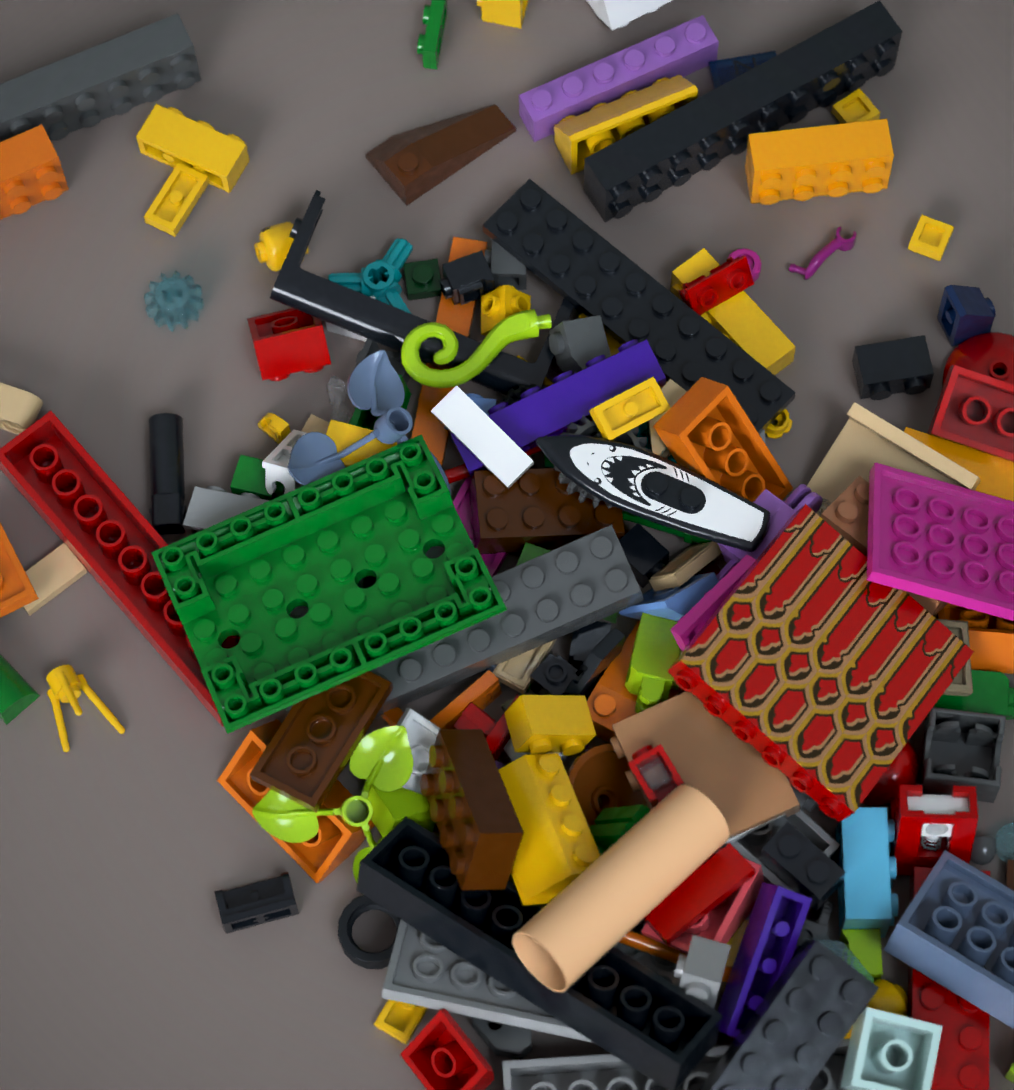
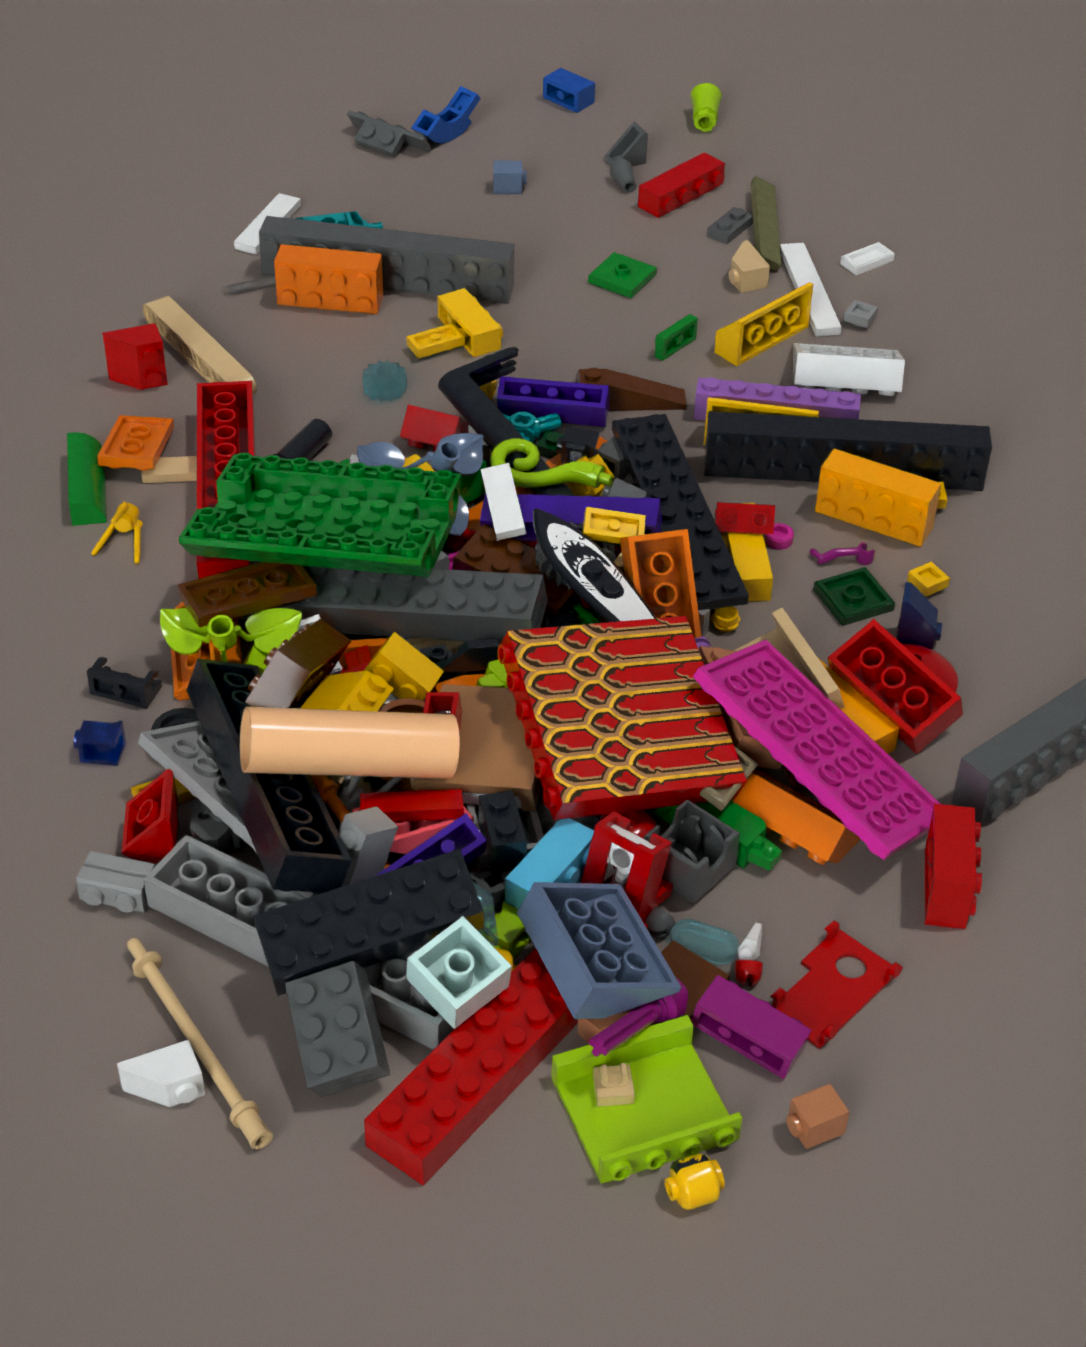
camera: 30 degrees right, 25 degrees down
(301, 994) = (100, 742): none -> clear blue window
(385, 223) = (571, 401): none -> dark purple brick
(871, 304) = (854, 596): none -> dark green tile
(893, 367) = (832, 624): black brick -> none

